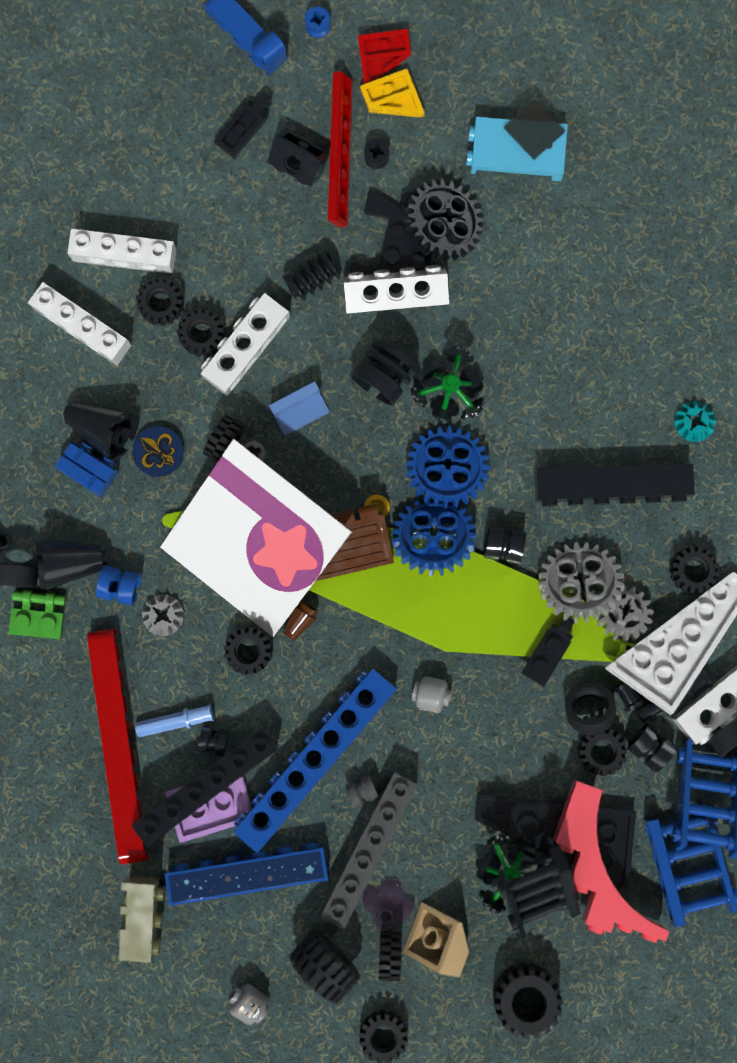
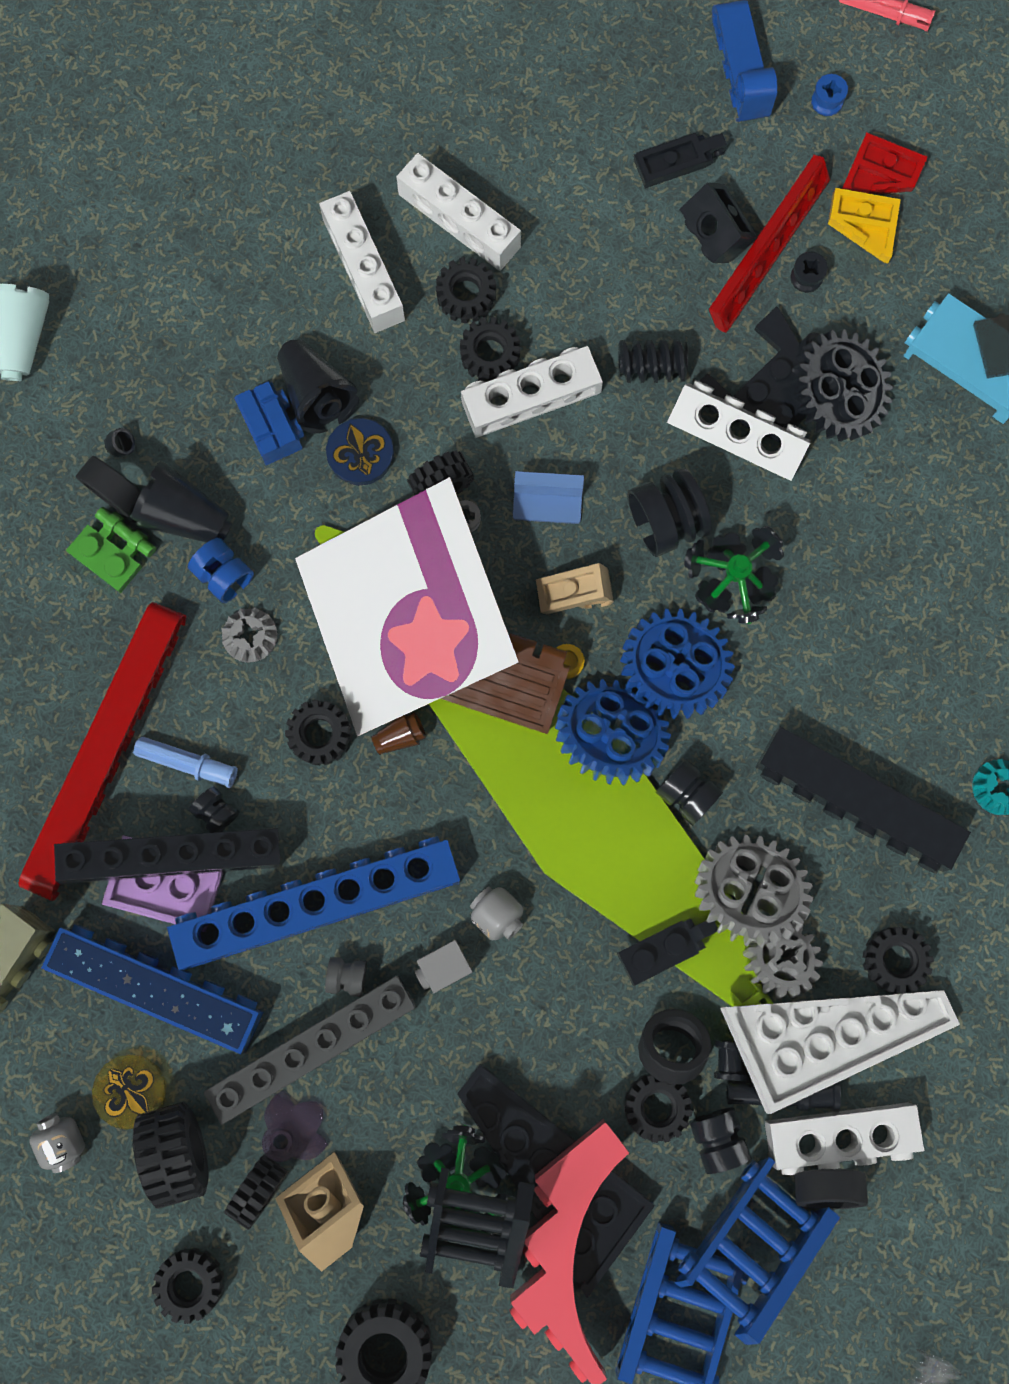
camera: 30 degrees right, 5 degrees down
(270, 945) = (128, 1088): none -> tile
(353, 458) = (575, 589): none -> tan plate
(418, 749) = (442, 967): none -> light grey brick

